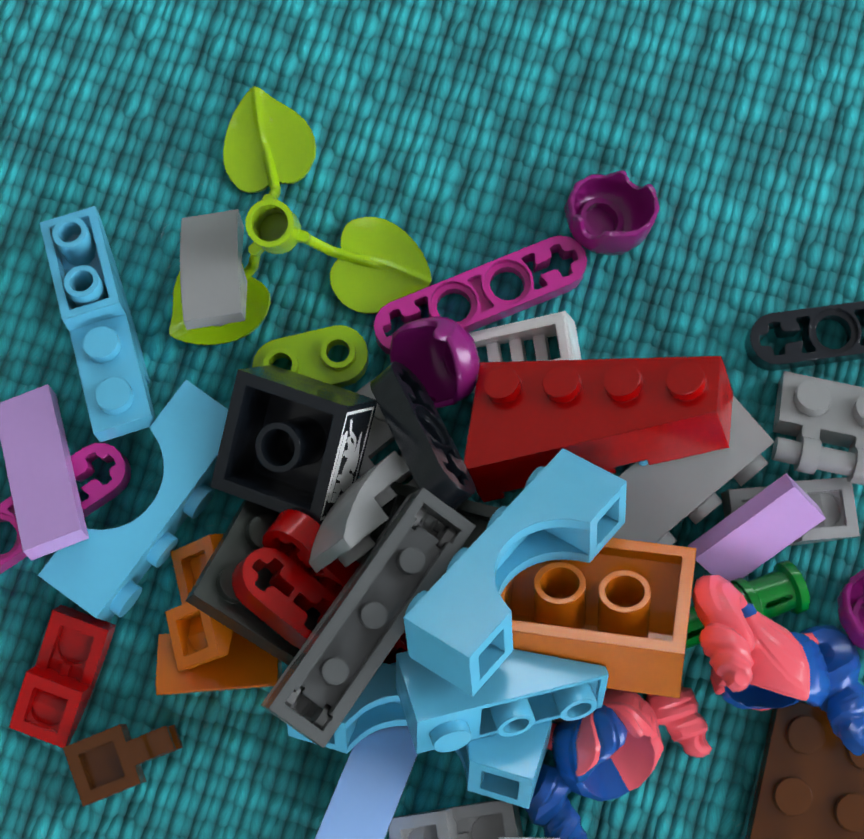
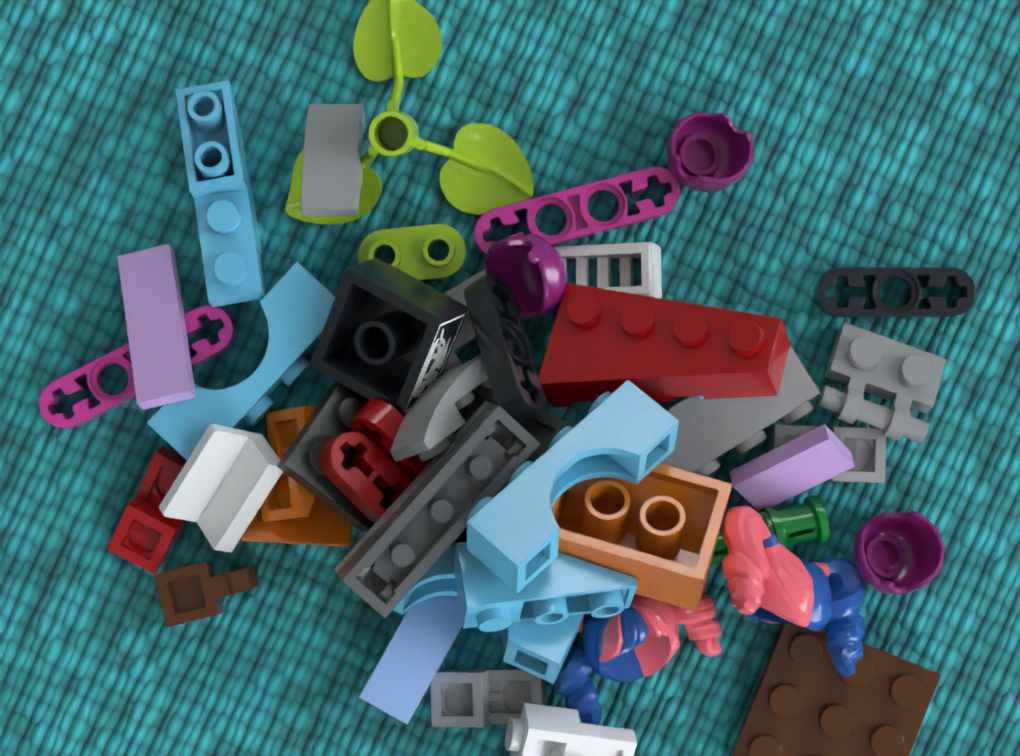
camera: 10 degrees right, 10 degrees up
(129, 633) = (223, 484): none -> white panel

